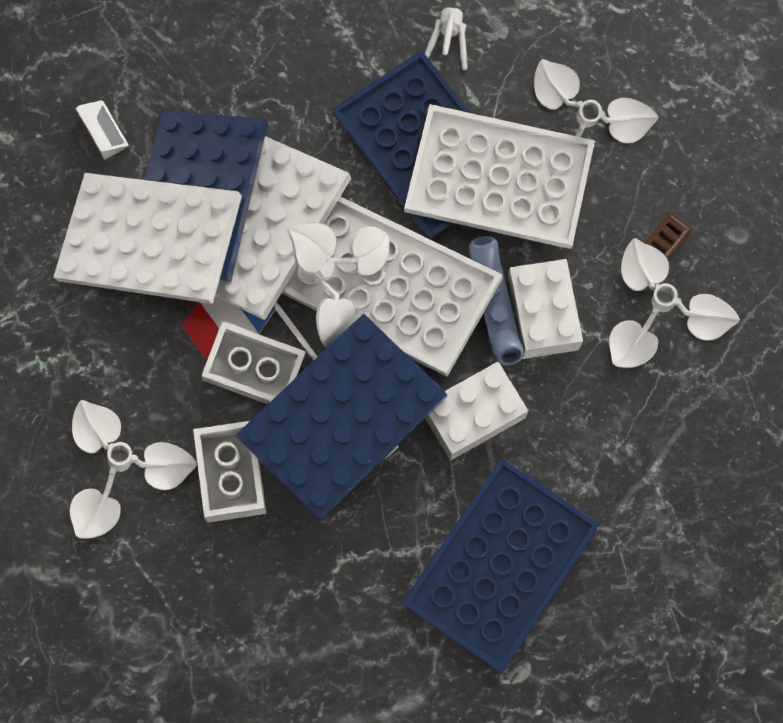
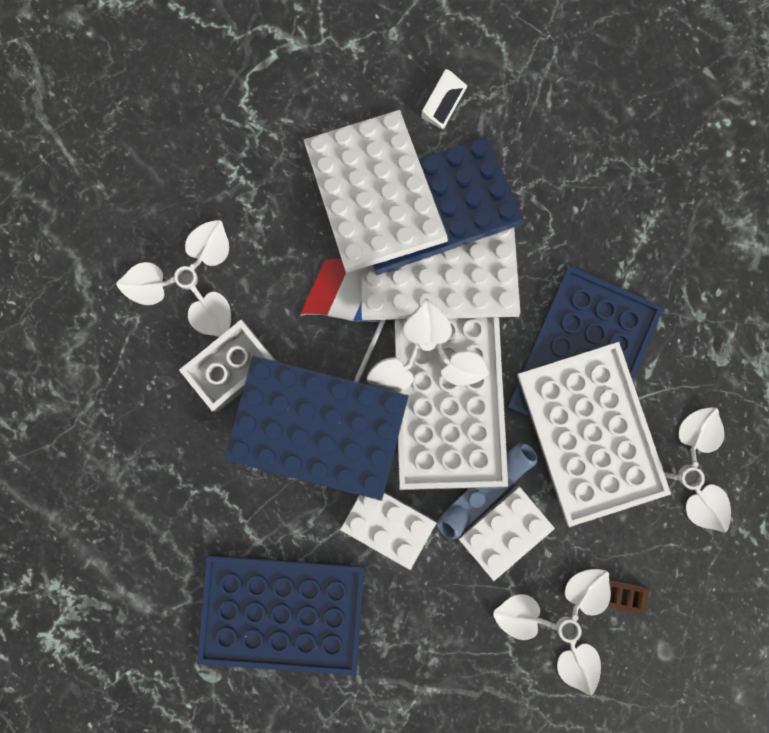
camera: 65 degrees right, 10 degrees up
(251, 363) = (320, 332): white brick -> none
(450, 25) = (700, 316): white plant -> none

